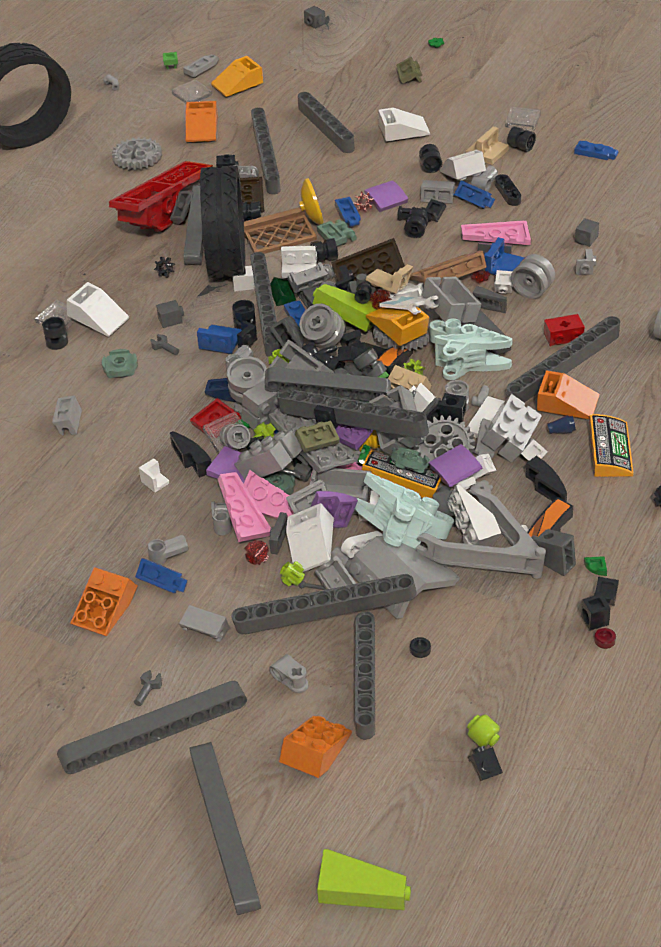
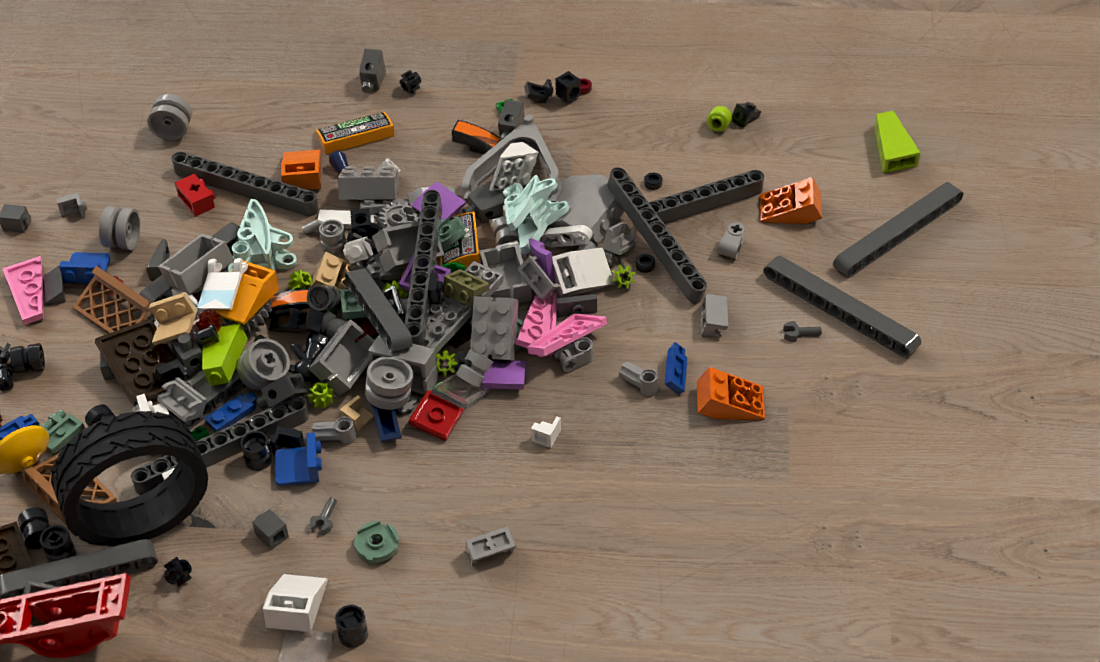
camera: 115 degrees left, 5 degrees up
(190, 453) = (502, 411): black slope -> none
(256, 552) = (610, 309): clear red gear -> none
(503, 282) = (124, 259): white bracket -> none
(545, 479) = (422, 153): black slope -> none

